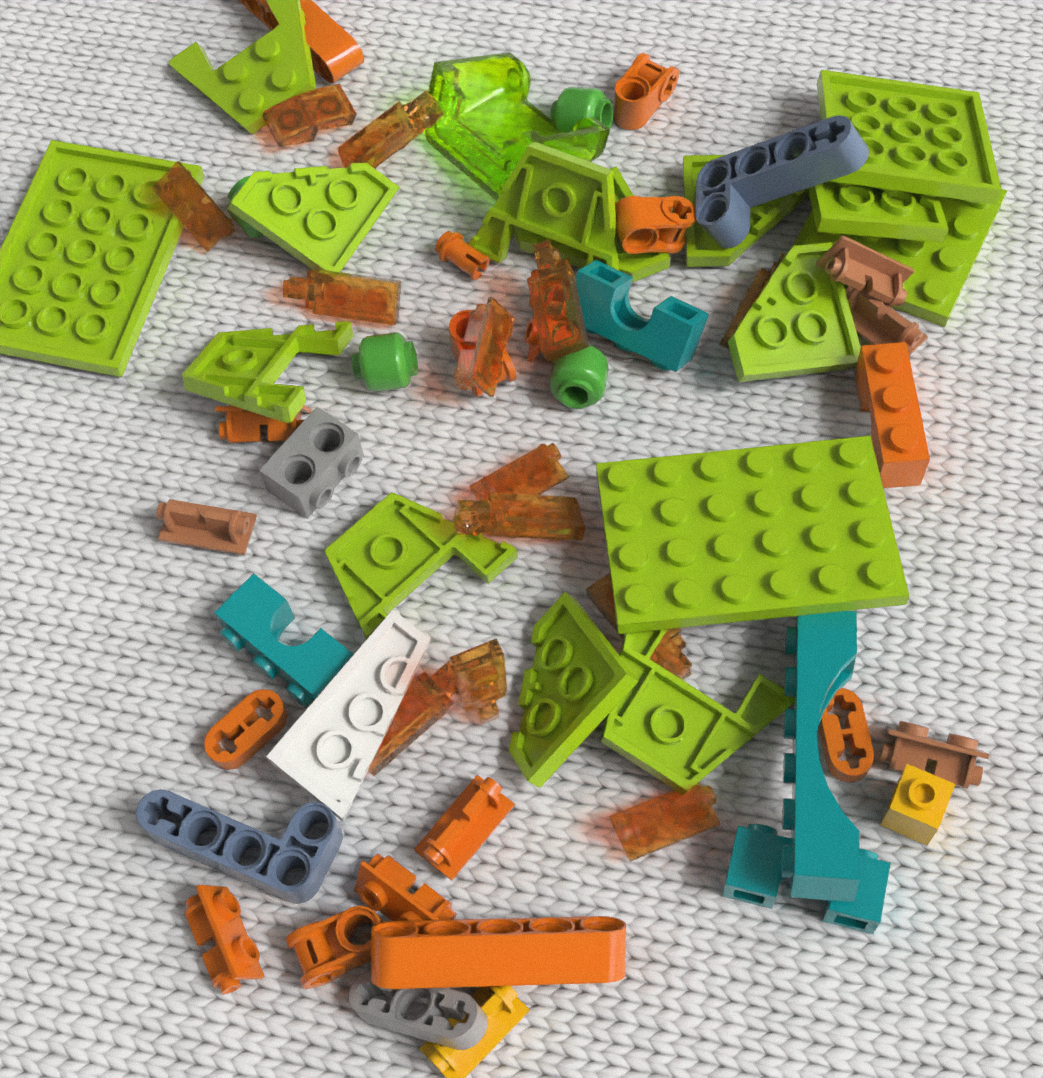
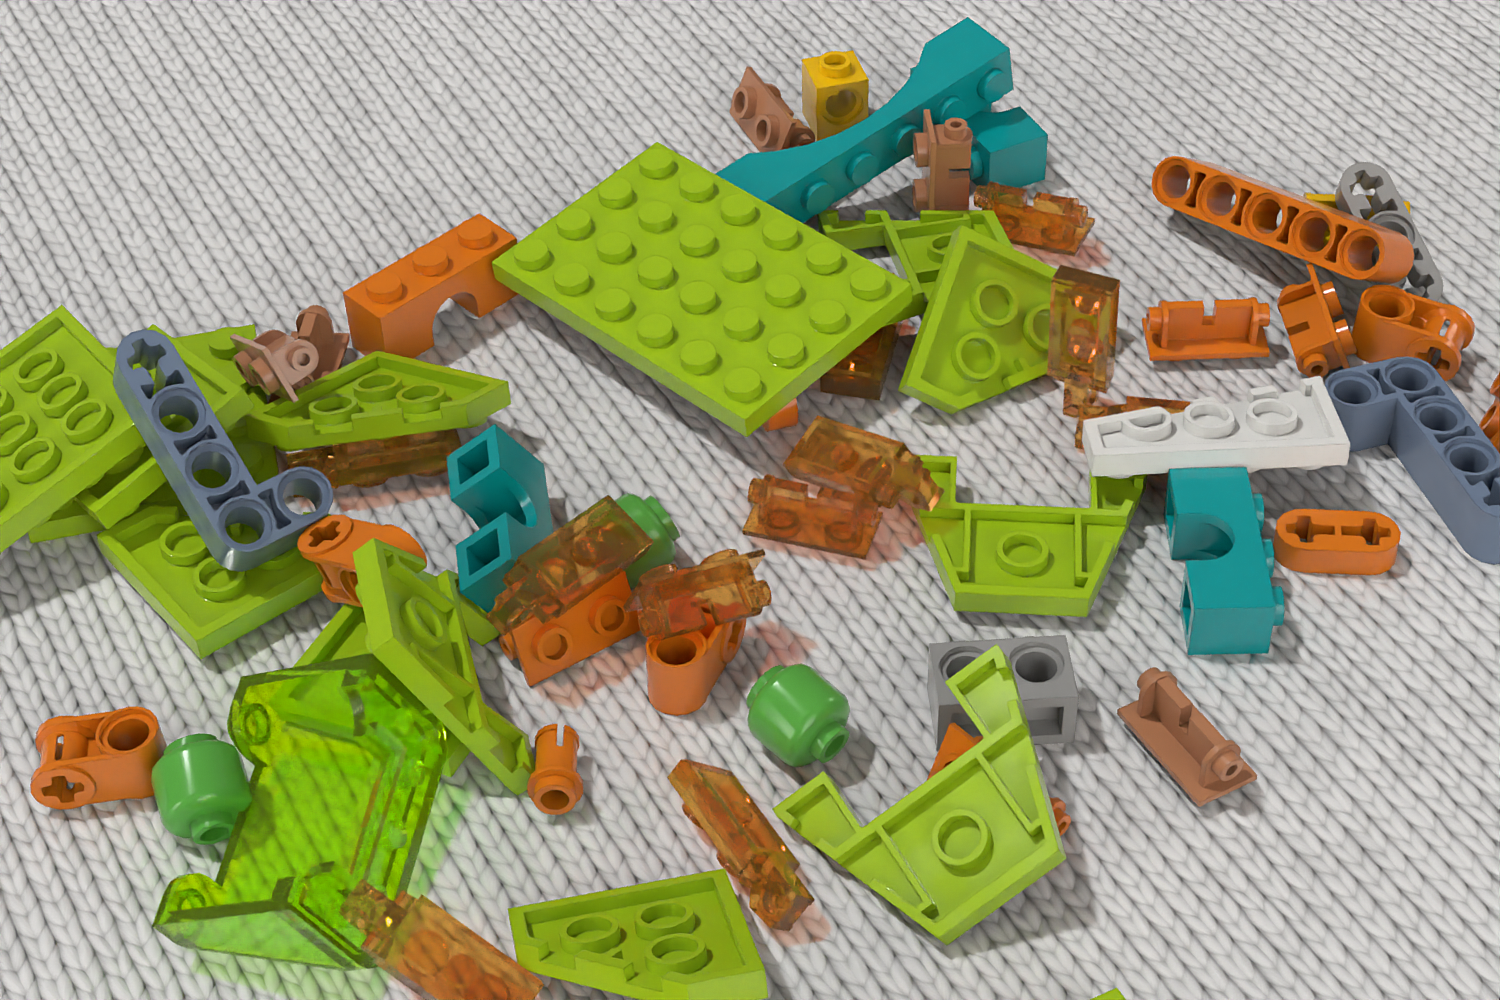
camera: 135 degrees left, 20 degrees down
(747, 771) = (937, 152): none -> nougat hinge

